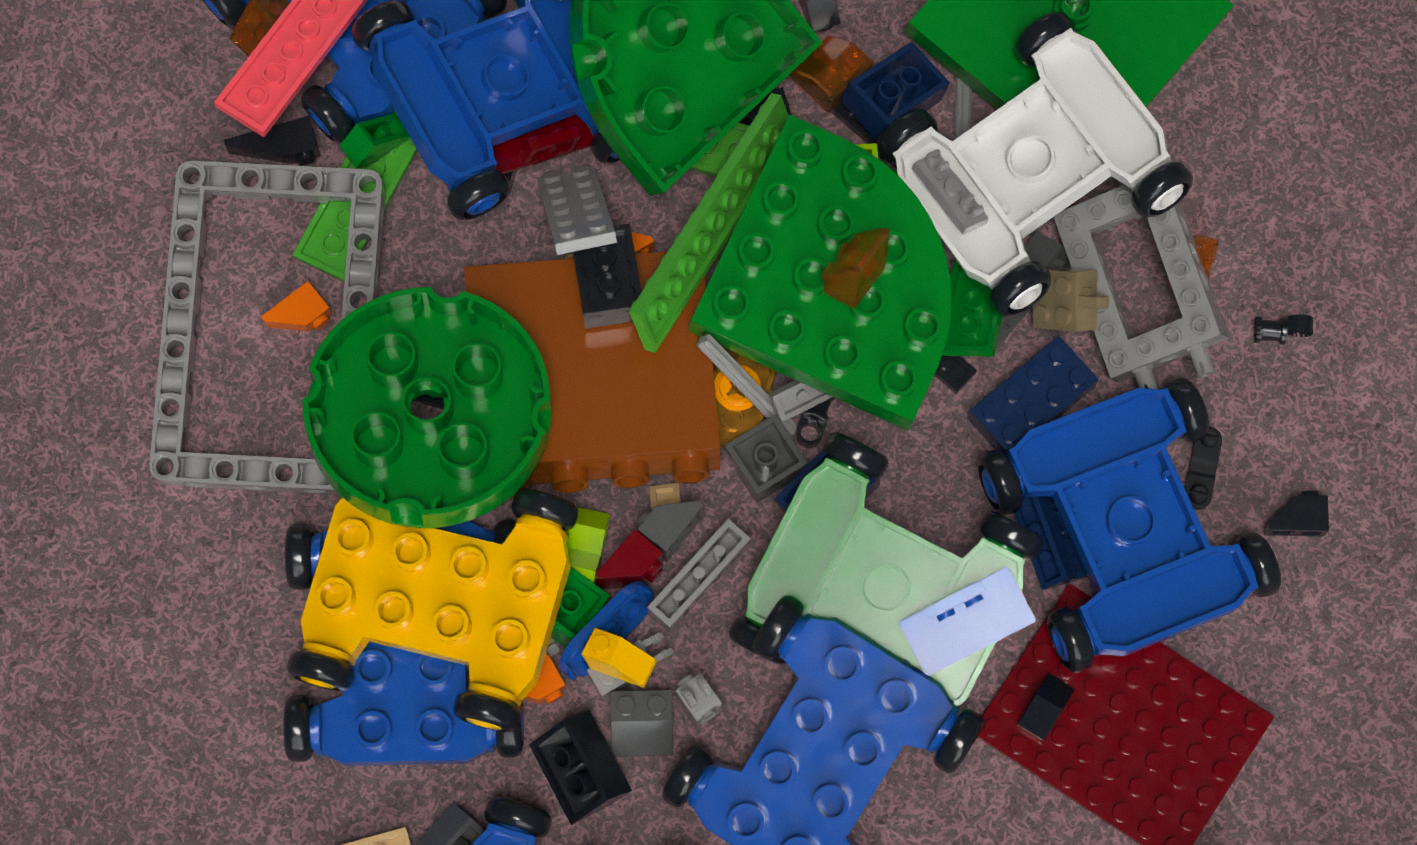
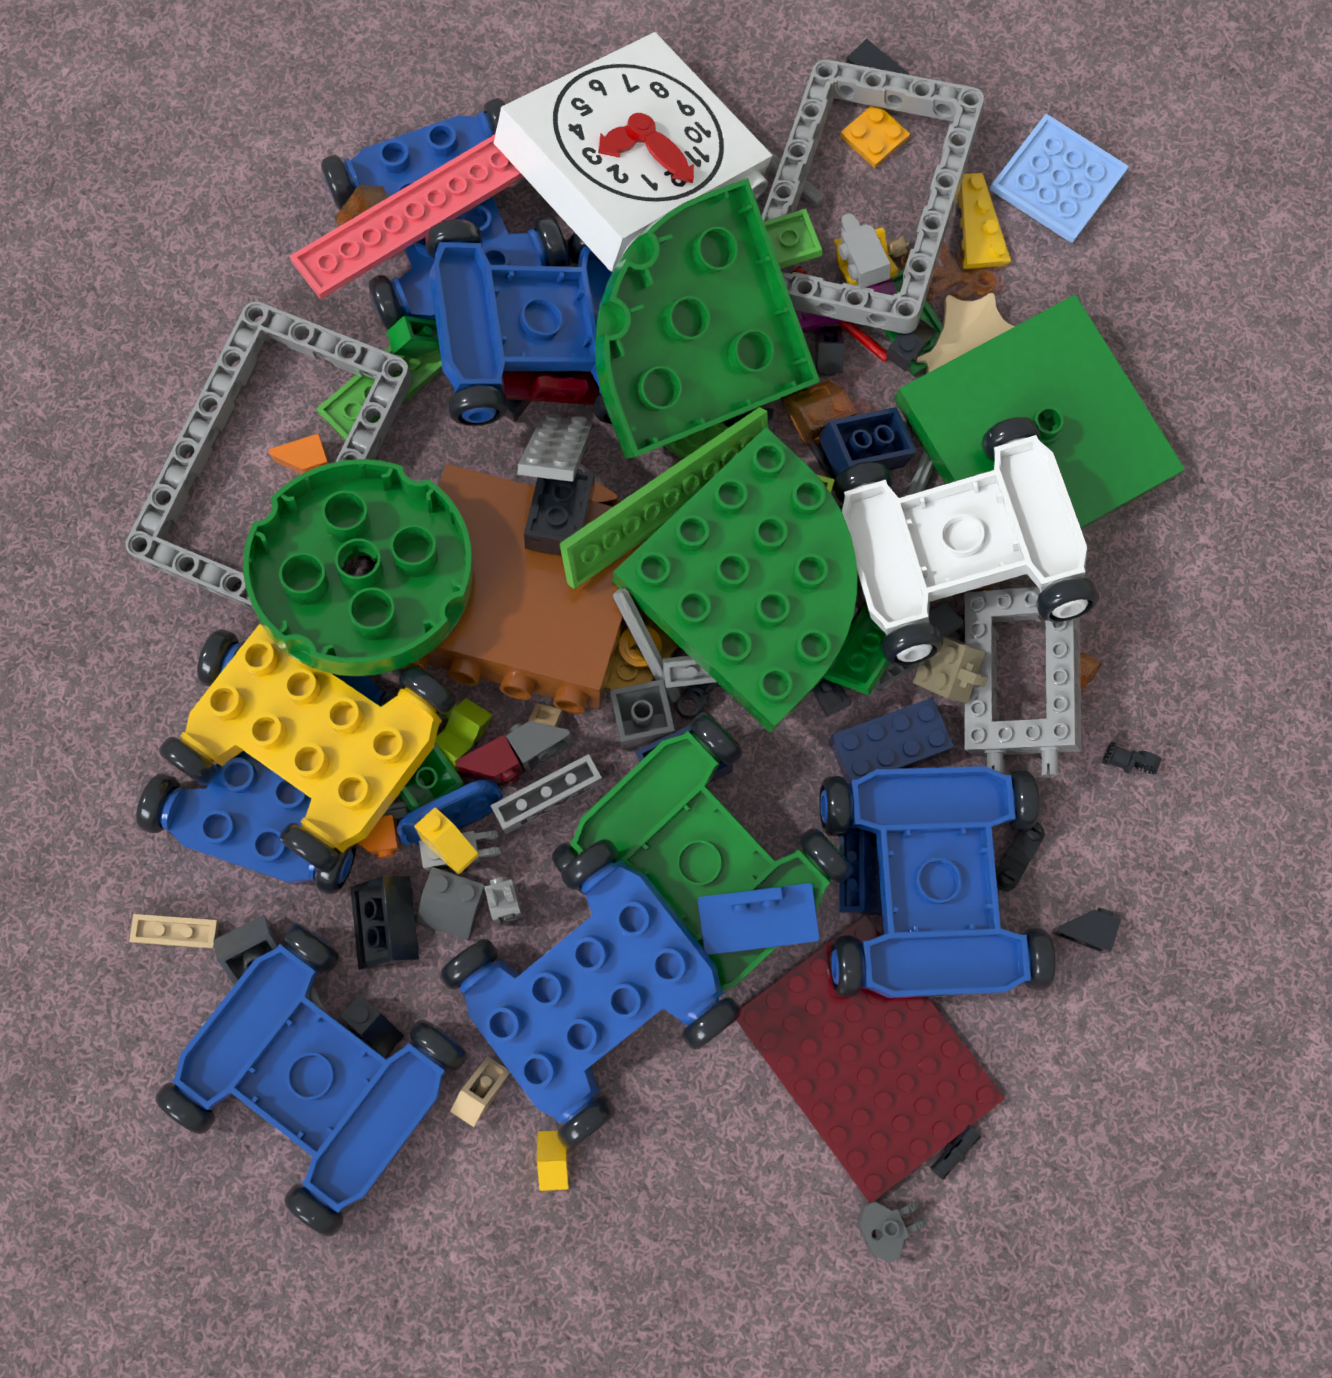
camera: 20 degrees right, 0 degrees up
(284, 143) = (347, 316): black slope -> none
(857, 267) = (773, 574): clear orange slope -> none
(950, 192) = (881, 541): light grey plate -> none
(1046, 707) = (805, 1017): black slope -> none
(1244, 787) = (955, 1152): none -> black pin

